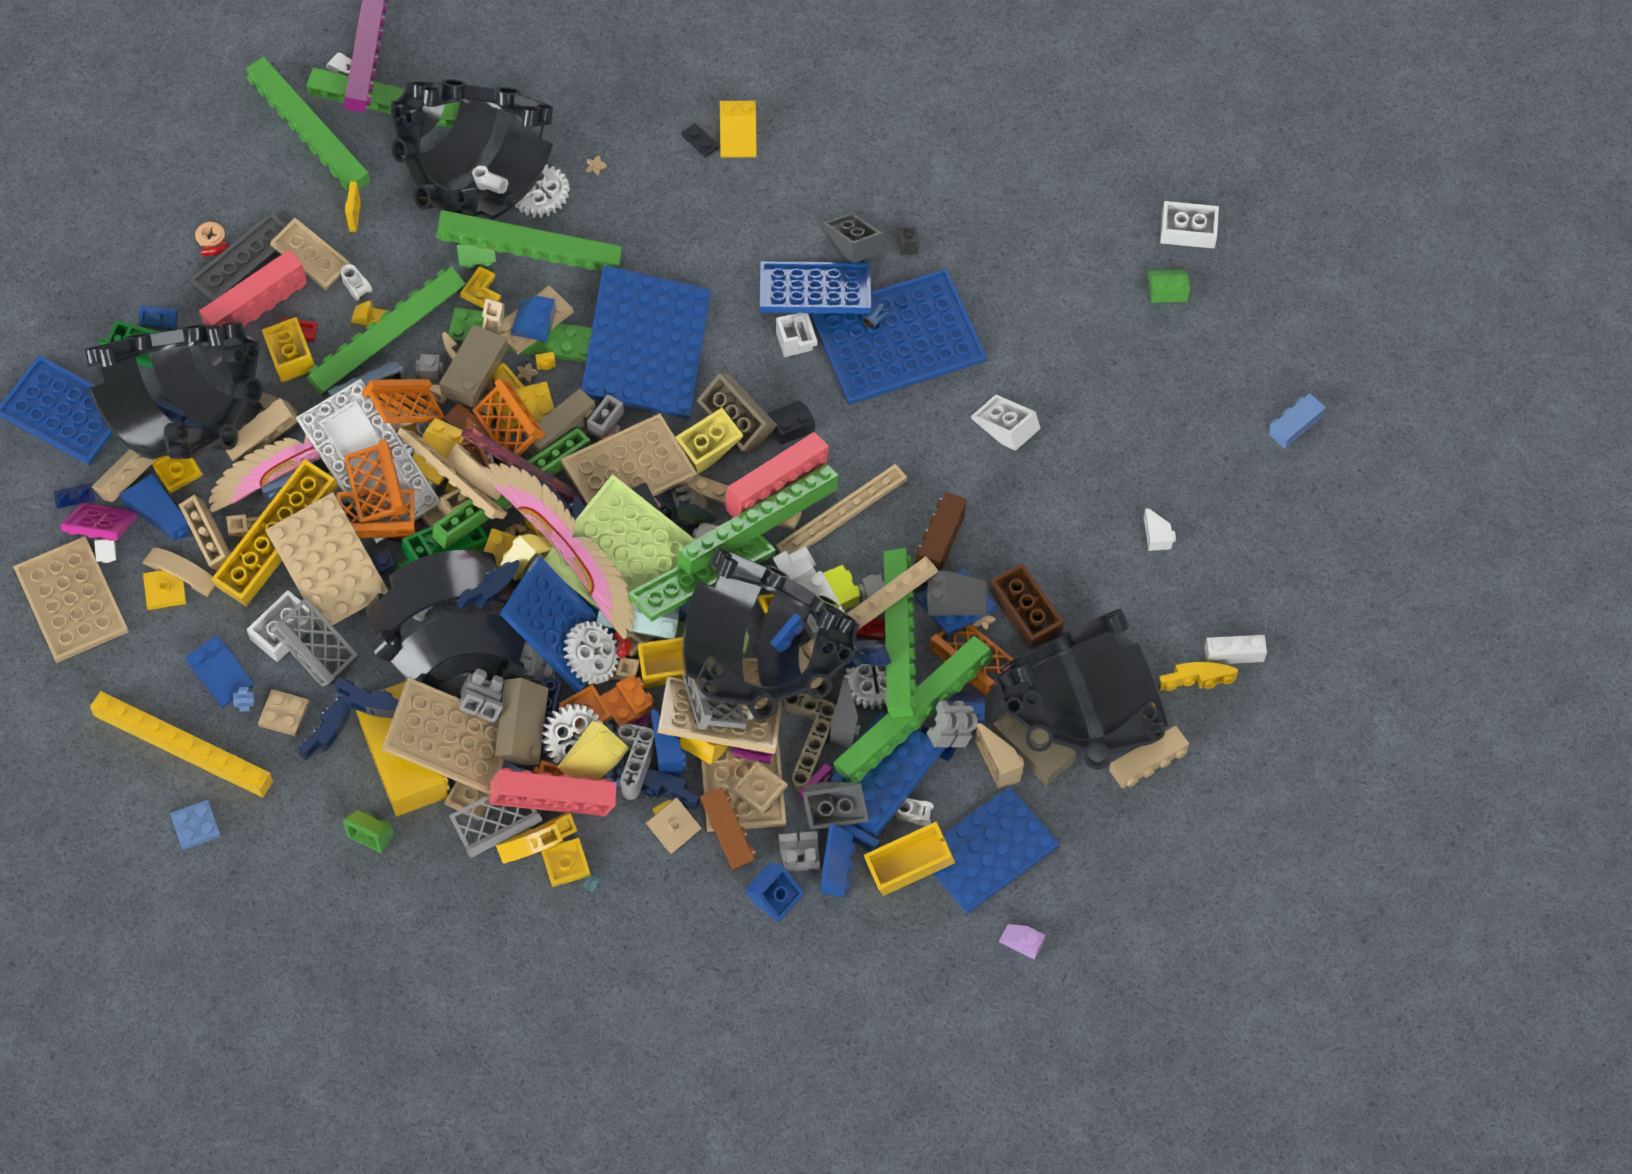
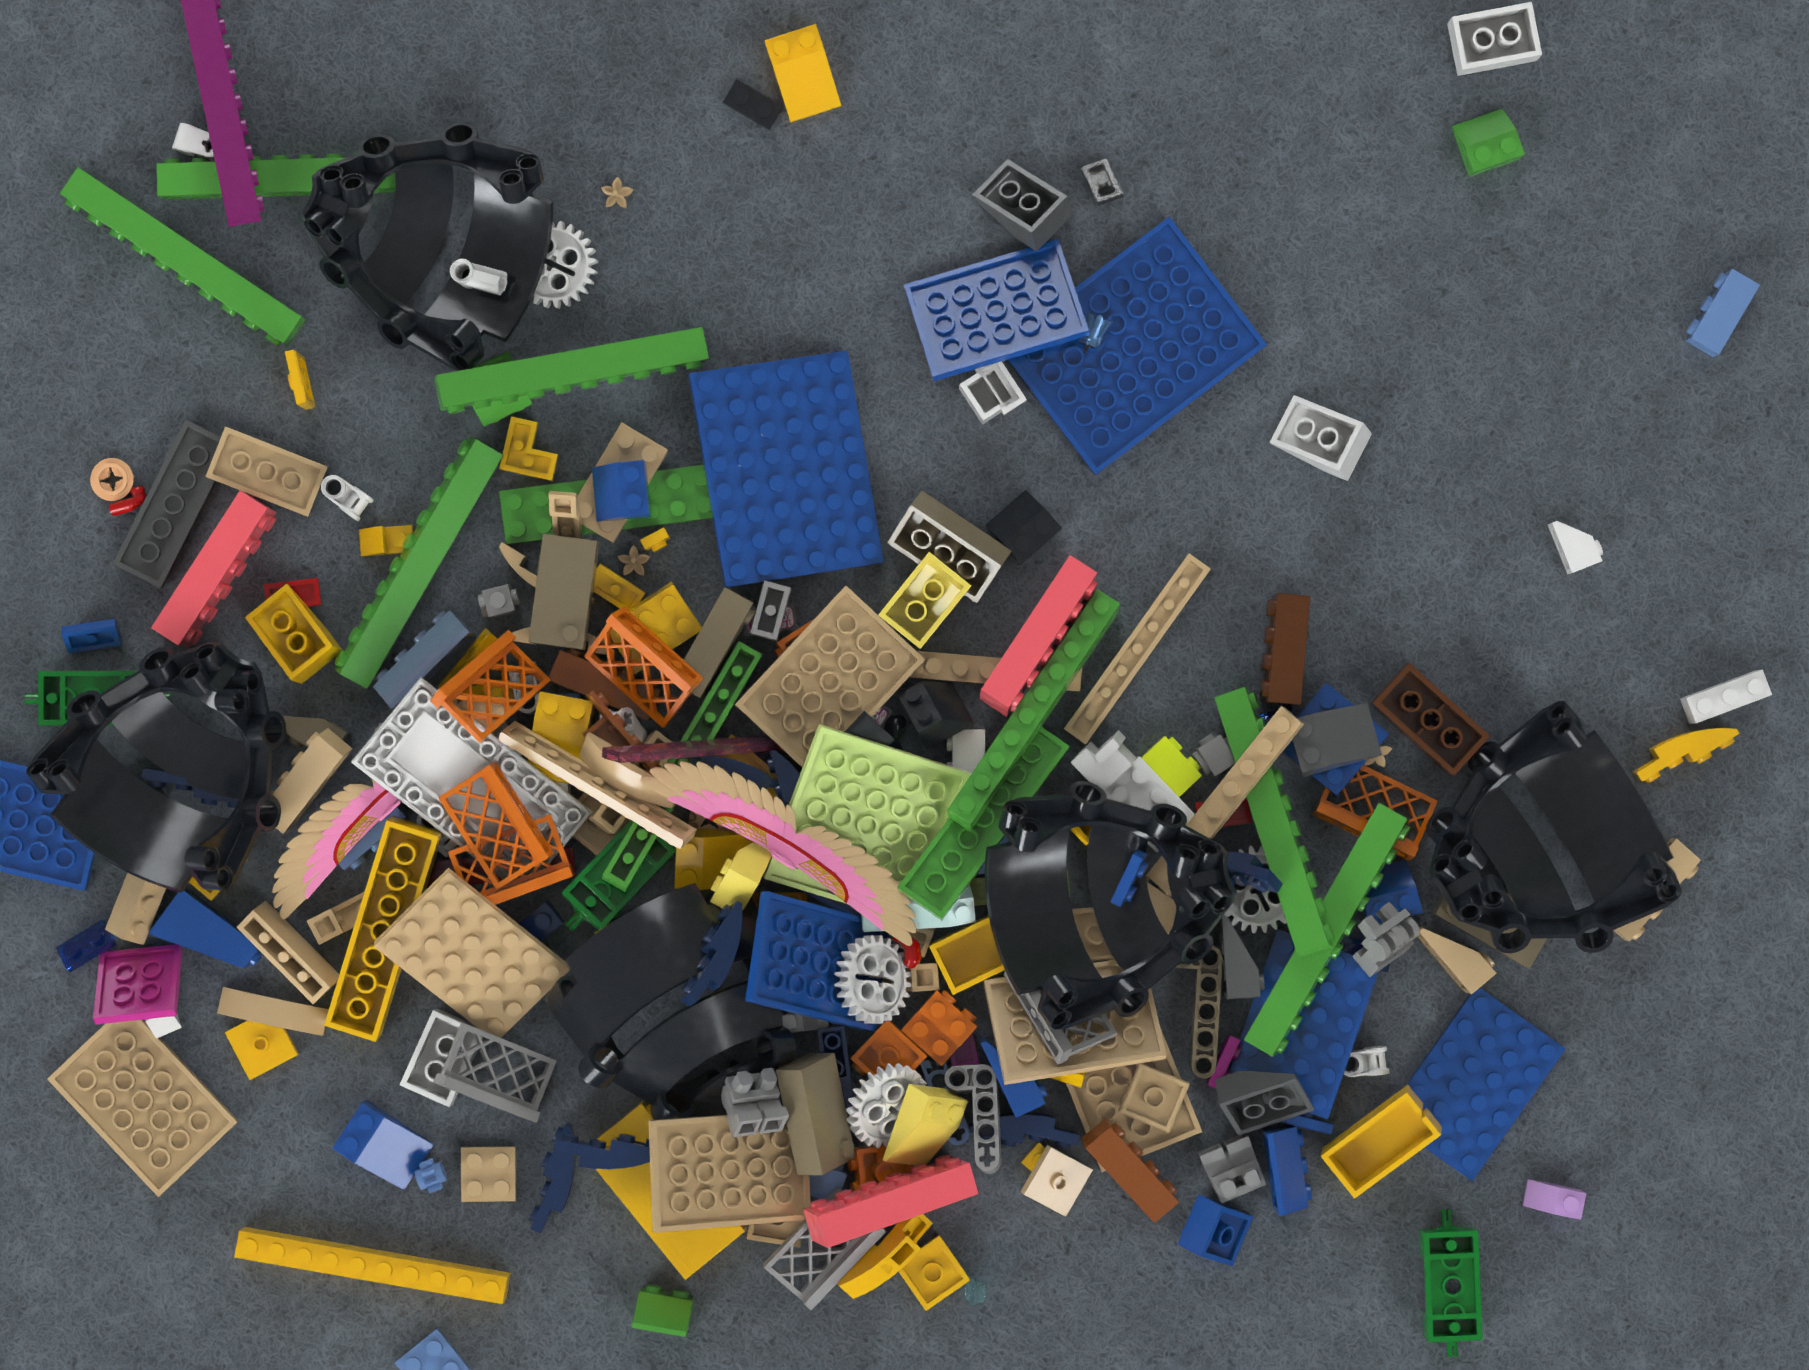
camera: 15 degrees left, 25 degrees up
(923, 991) = (1446, 1255): none -> green brick

